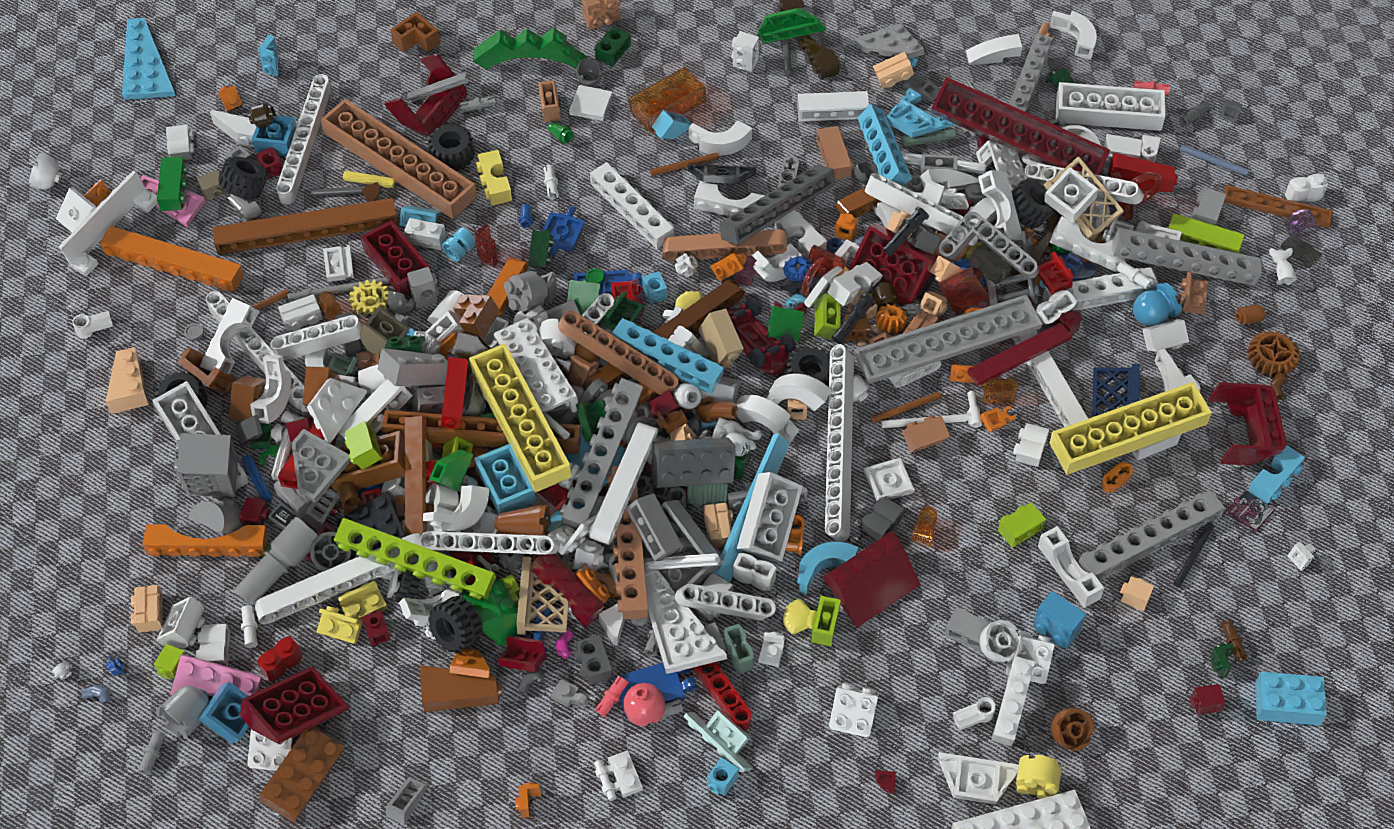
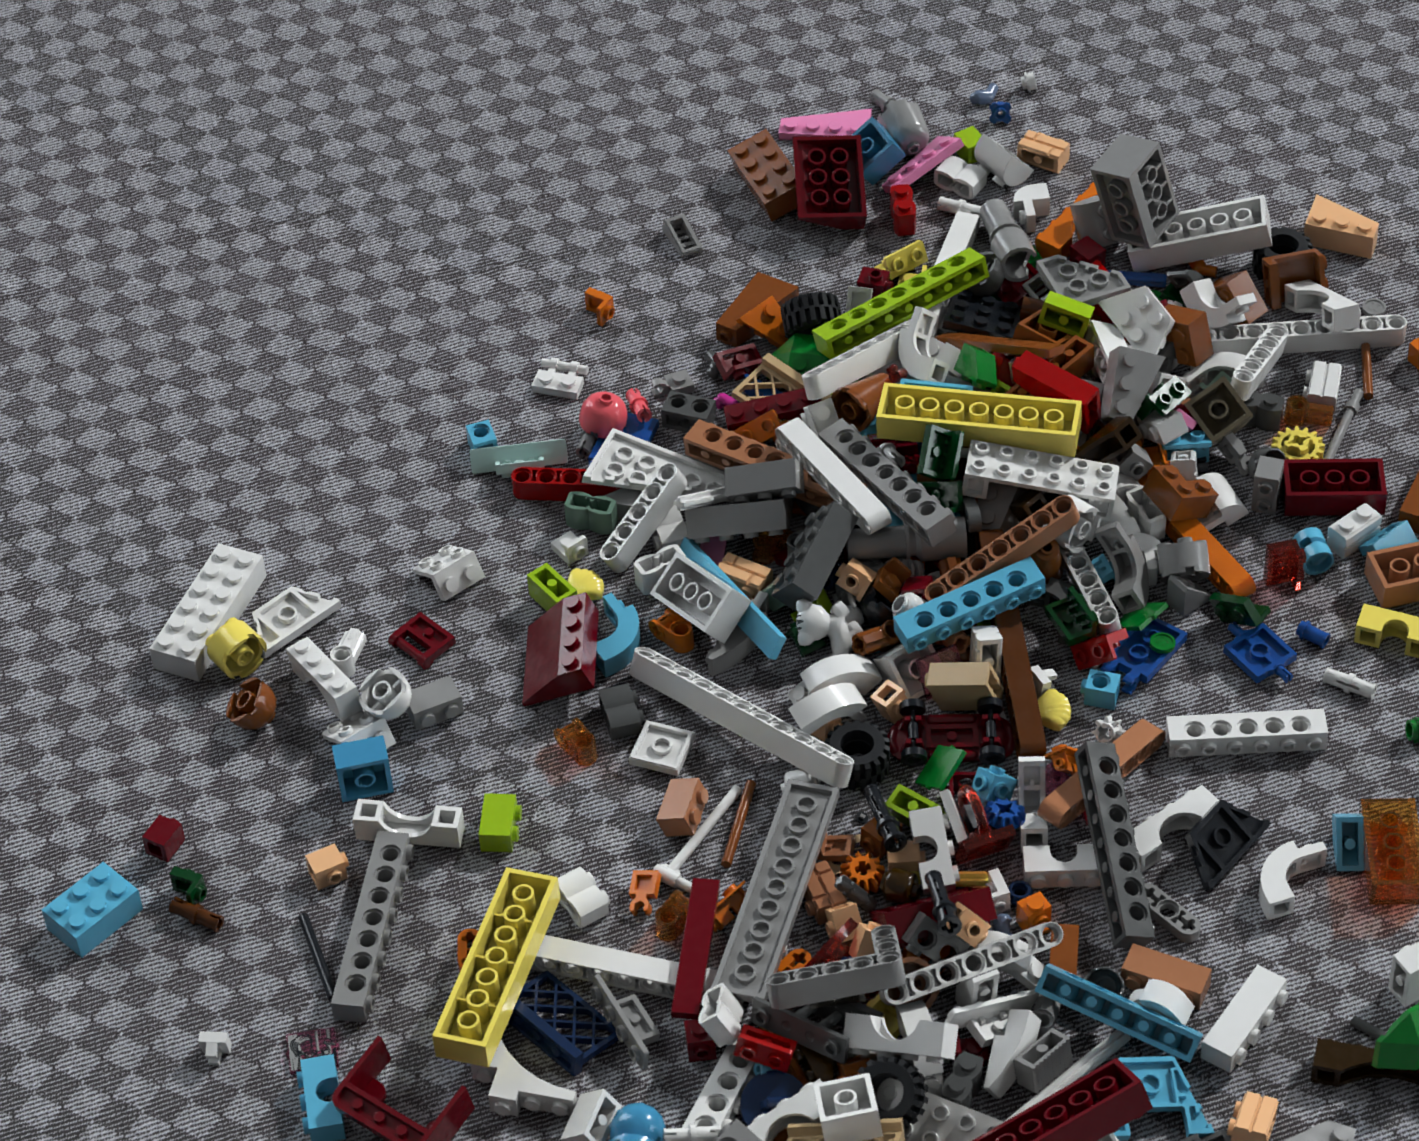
camera: 130 degrees right, 10 degrees down
(203, 781) = (823, 124): none -> bright pink wing
(219, 584) = (1031, 202): none -> white brick
(338, 263) = (1373, 444): white plate -> none
(488, 517) = (895, 374): none -> clear red arm
(567, 416) = (940, 453): none -> dark green bracket
(683, 164) = (1278, 821): dark orange bar -> none
(757, 376) = (890, 708): none -> light nougat brick
(778, 288) = (993, 783): none -> medium azure brick
(857, 142) = (1165, 1000): none -> white brick
(886, 780) = (359, 557): dark red tile -> none
(918, 676) = (427, 634): none -> dark red plate
(1086, 363) = (629, 1019): none -> light grey bracket

